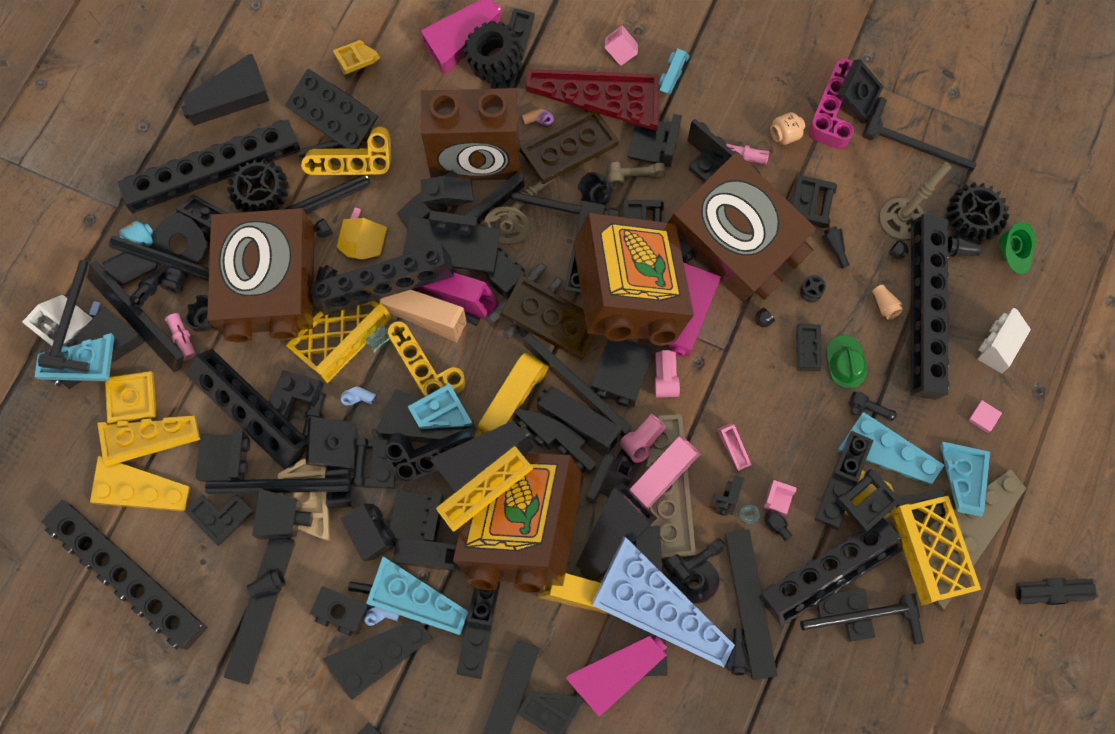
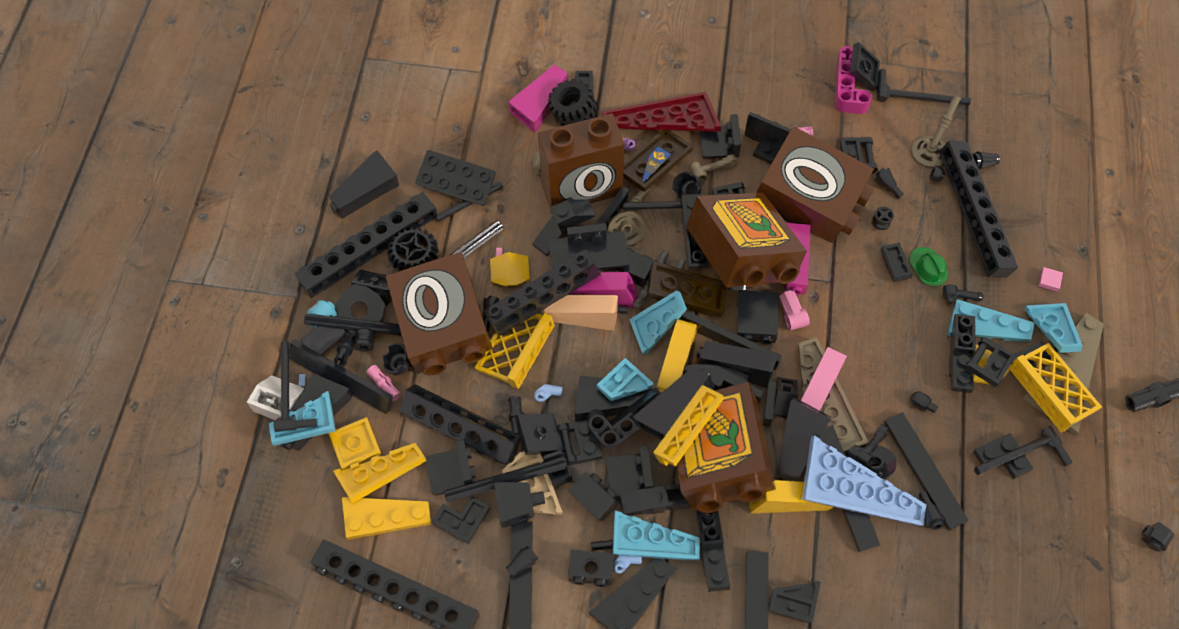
camera: 15 degrees left, 10 degrees down
(292, 388) = (496, 397): black plate -> none
(322, 228) = (476, 269): black hinge -> none
(346, 157) = (497, 204): yellow beam -> none
(355, 56) = (459, 135): yellow slope -> none
(377, 339) = (550, 342): clear light blue tile -> none
(420, 362) = (591, 351): yellow beam -> none
(503, 346) = (657, 320): none -> medium azure wing
(567, 148) = (655, 159): none -> sticker
(611, 677) = (839, 554): dark pink slope -> none
(621, 45) = (669, 78): bright pink panel -> none
(637, 443) = (791, 367): bright pink piece -> none
(676, 62) = (717, 77): medium azure wing -> none
(726, 504) = (879, 390): black bracket -> none
(734, 446) = (866, 351): bright pink piece -> none
(751, 519) = (901, 403): clear light blue hinge -> none
(764, 318) = (853, 249): black hinge -> none
(779, 497) = (916, 379): bright pink panel -> none
(787, 128) = (819, 106): light nougat head -> none
(847, 570) = (980, 426): black brick -> none
(888, 304) = (944, 214): light nougat cone -> none
(974, 223) = (986, 131): black gear -> none
(1004, 341) = (1044, 218): white slope -> none
(1018, 247) = (1026, 148): green piece -> none

